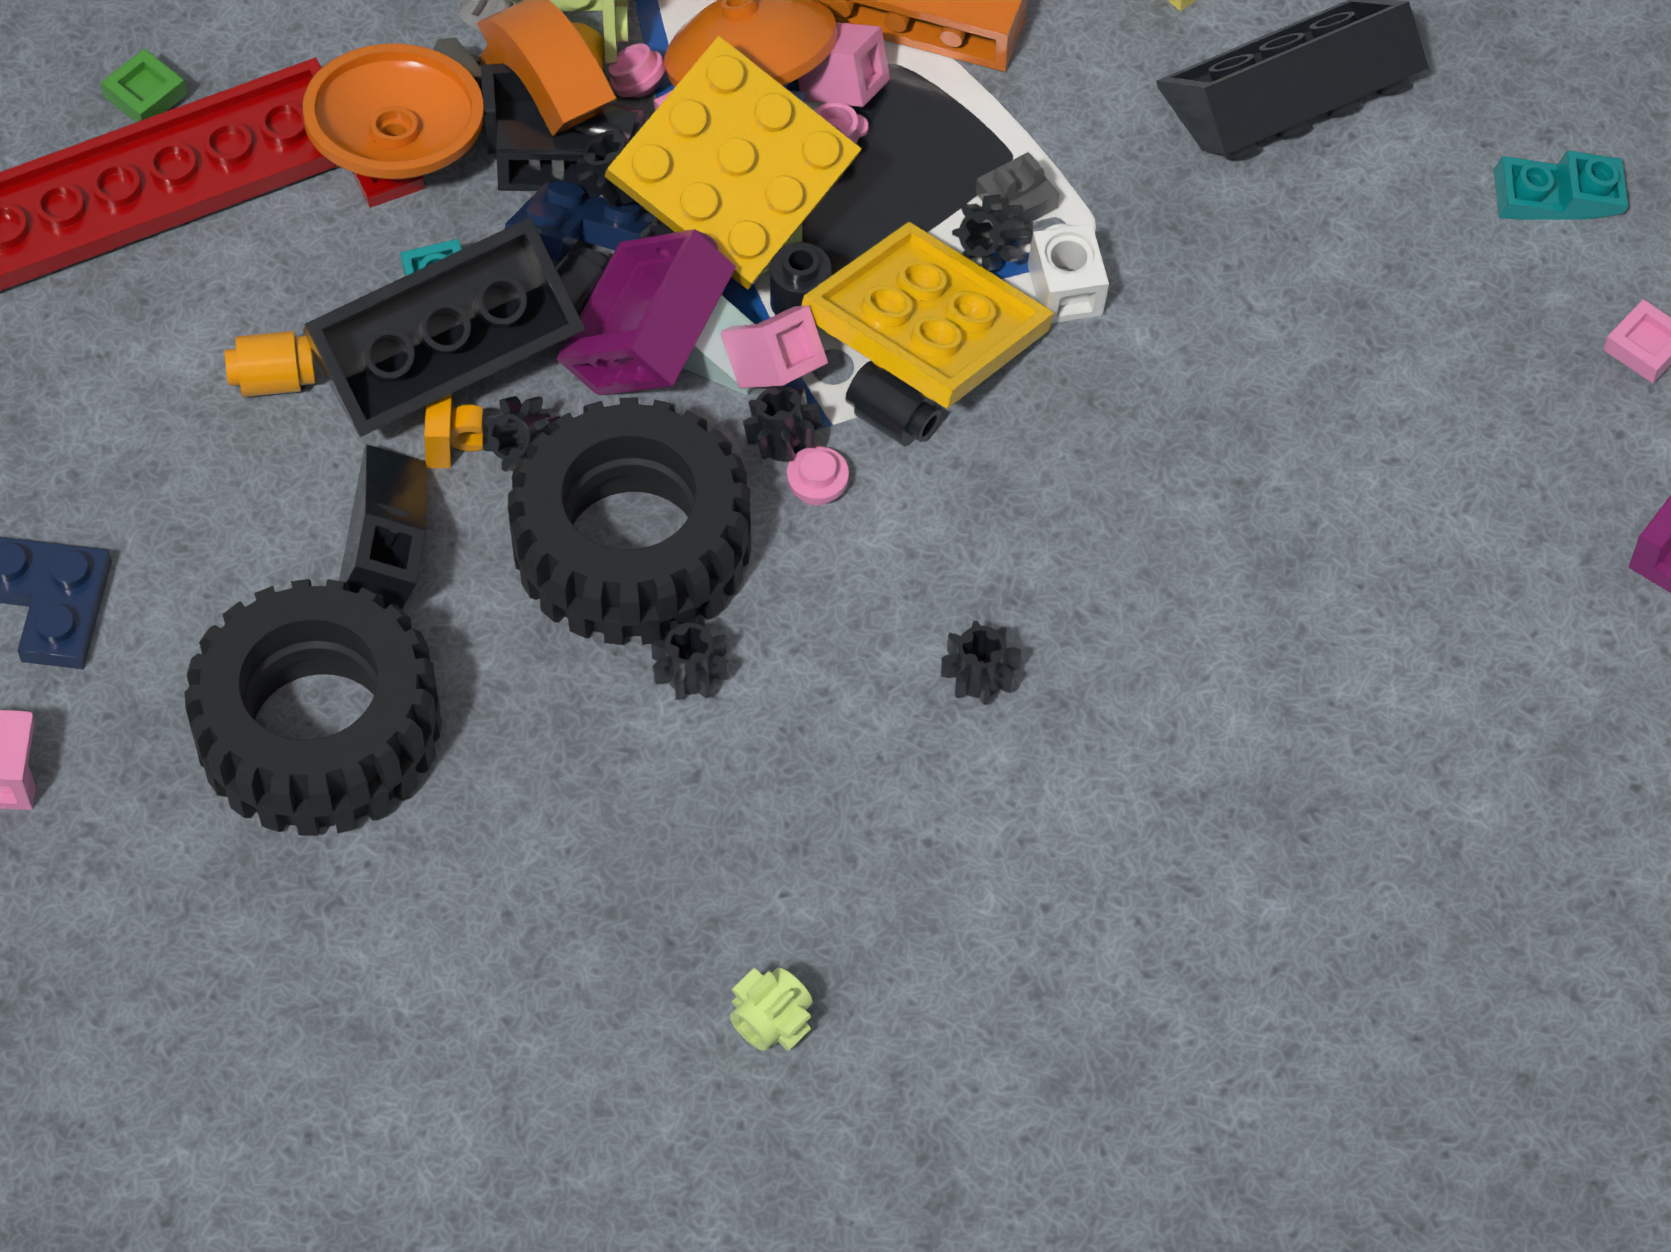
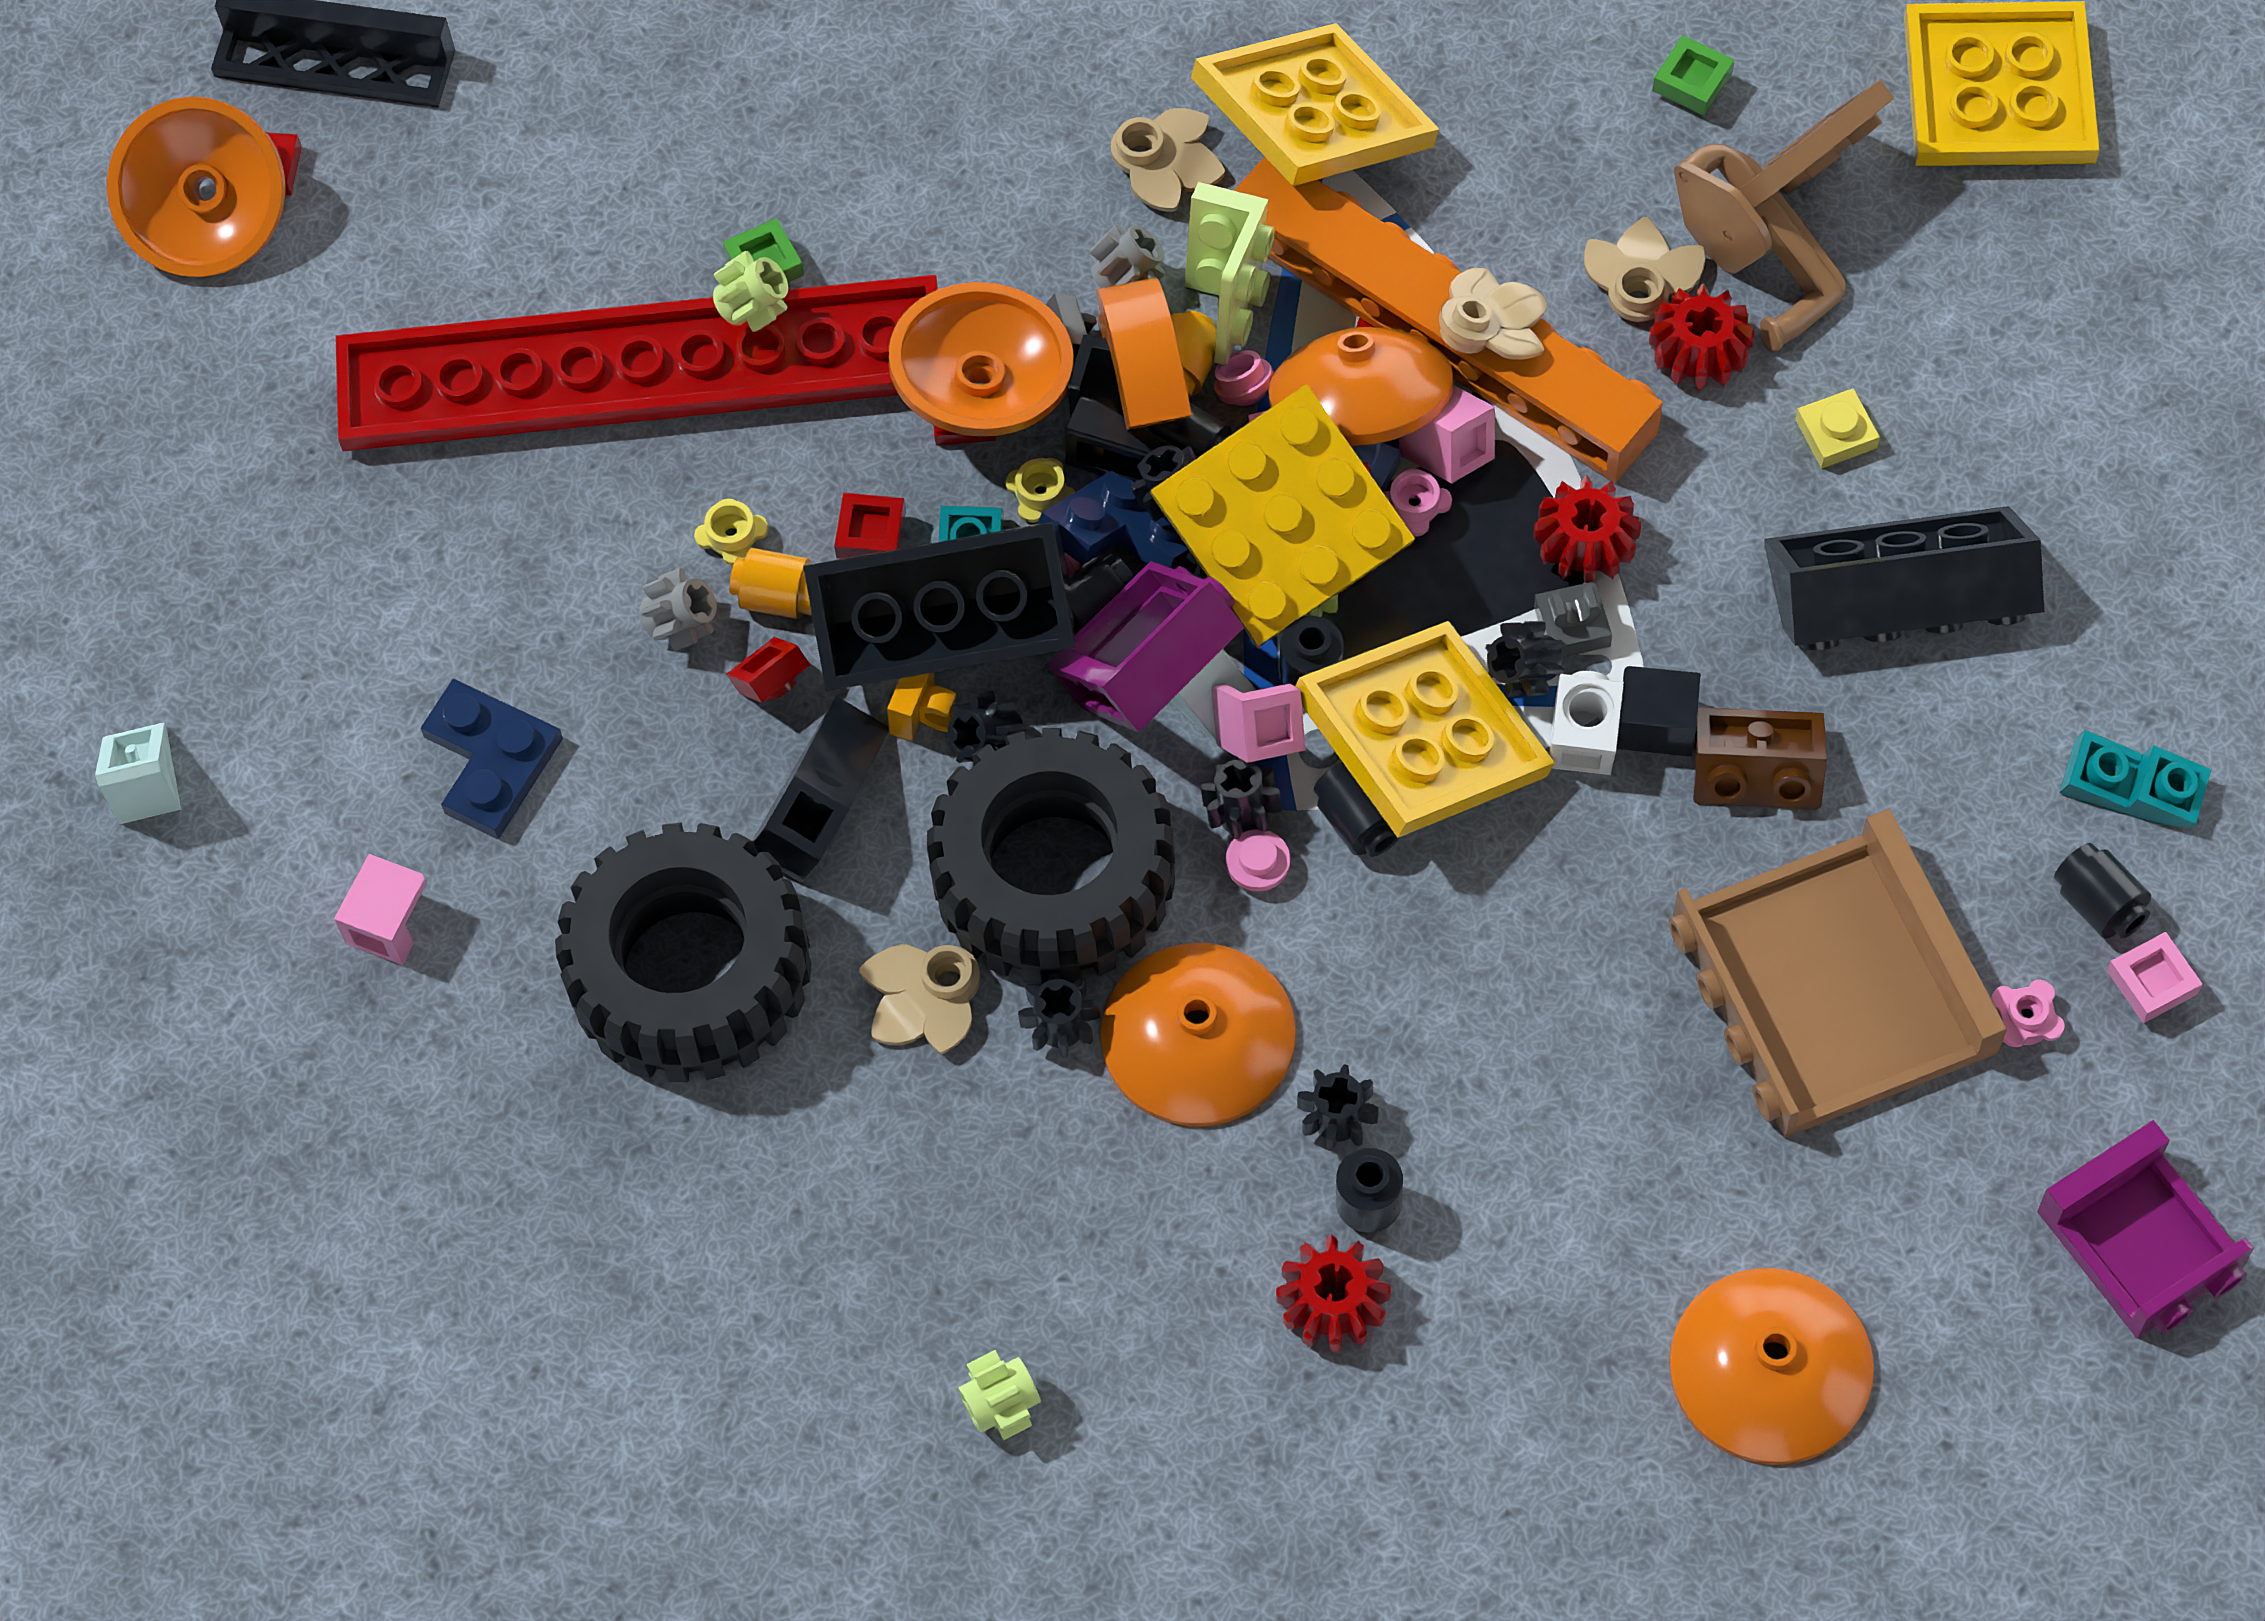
camera: 25 degrees right, 5 degrees up
(150, 110) = (750, 291): none -> yellowish green gear
(184, 410) = (678, 609): none -> light grey gear
(204, 317) = (727, 515): none -> light yellow plate
(293, 441) = (769, 670): none -> red plate
(335, 283) = (869, 524): none -> red plate
(481, 202) = (1031, 475): none -> light yellow plate
(549, 692) = (915, 1001): none -> tan plate
(815, 670) = (1204, 1069): none -> orange dish
(1001, 111) = (1606, 535): none -> red gear
(1038, 844) = (1320, 1316): none -> red gear
(1041, 722) = (1369, 1190): none -> black brick
(1132, 242) = (1658, 711): none -> black panel
(1232, 260) = (1759, 758): none -> reddish brown bracket
(1379, 420) = (1838, 978): none -> medium nougat panel
(1452, 796) = (1765, 1405): none -> orange dish
(1551, 418) = (2023, 1030): none -> bright pink plate
(1575, 283) = (2103, 891): none -> black brick

